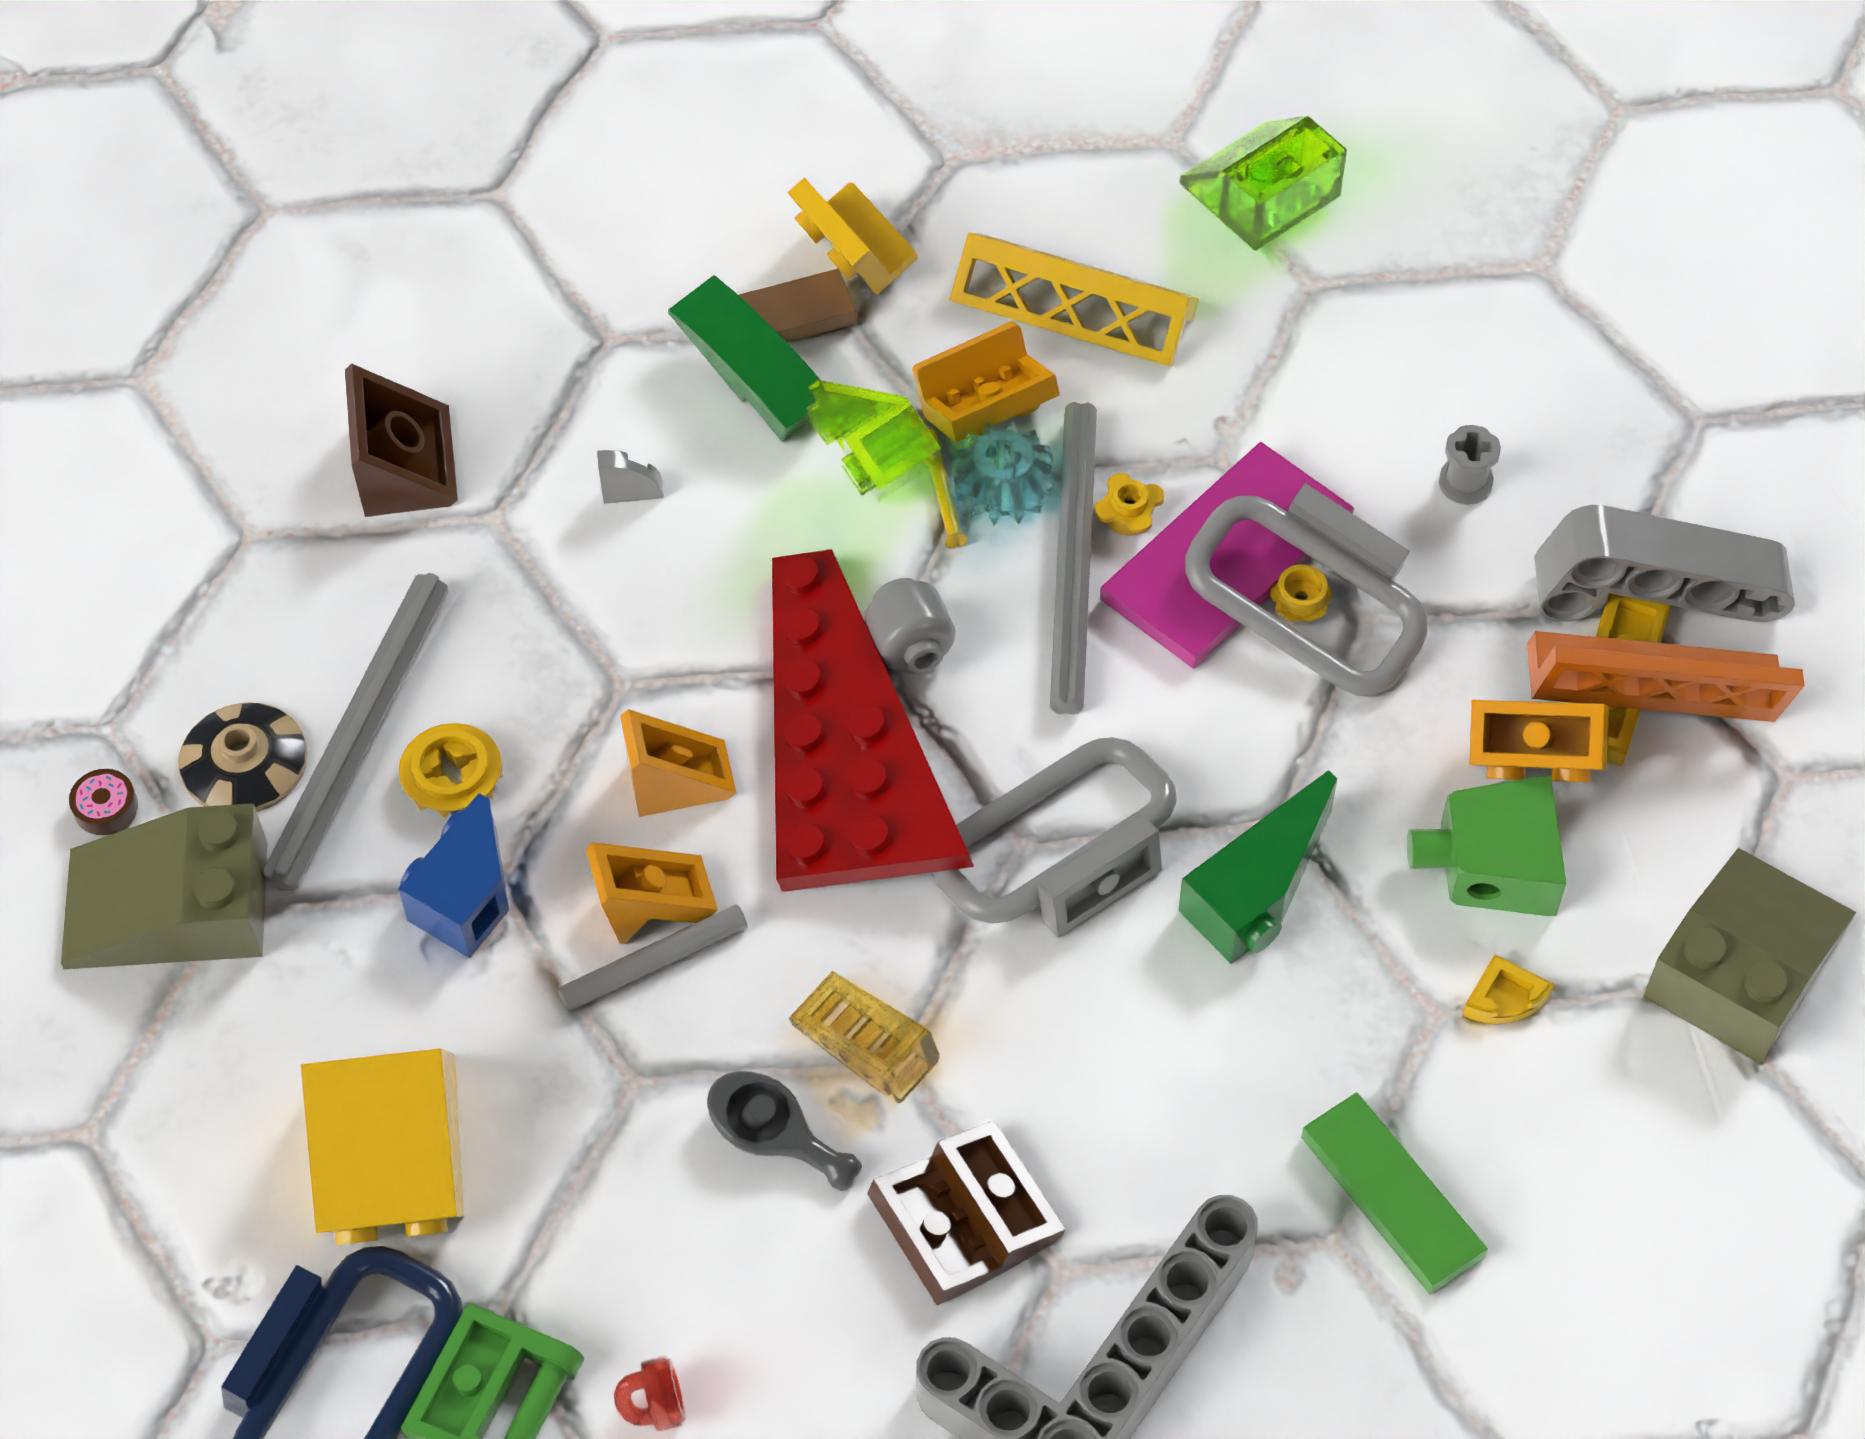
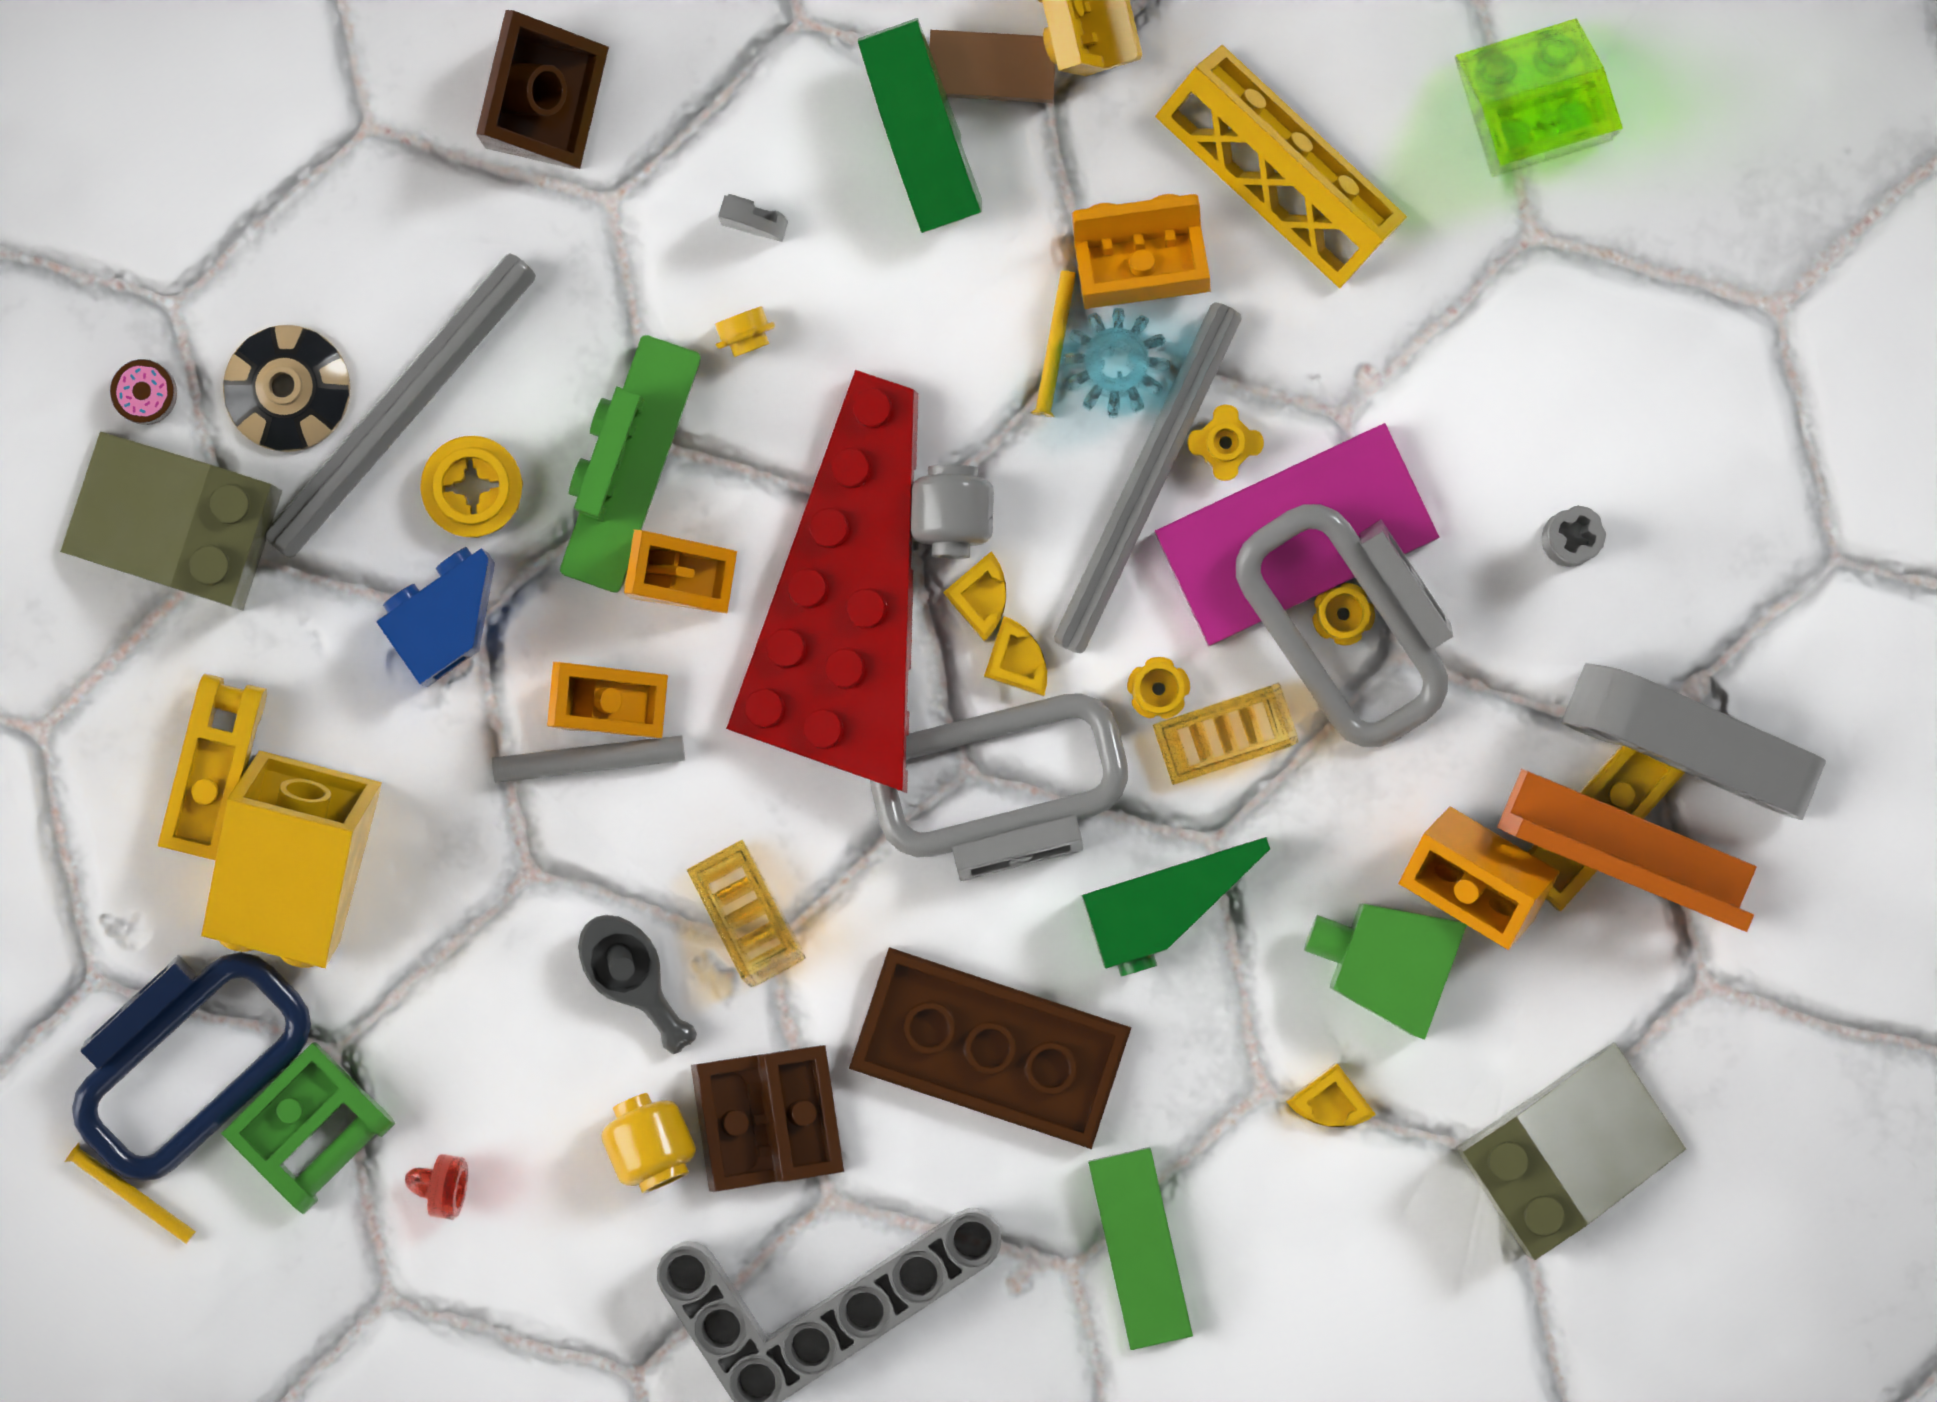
camera: 25 degrees right, 30 degrees up
(272, 1096) = (210, 766): none -> yellow plate
(588, 700) = (627, 461): none -> bright green bracket
(657, 562) = (744, 331): none -> yellow plate
(856, 1268) = (648, 1143): none -> yellow head
(877, 432) = (995, 299): clear neon green slope -> none
(965, 697) = (980, 595): none -> yellow tile
(1025, 736) = (1017, 659): none -> yellow tile
(1156, 1068) = (990, 1048): none -> reddish brown tile
(1166, 694) = (1162, 671): none -> yellow plate
(1264, 679) = (1278, 716): none -> clear yellow slope

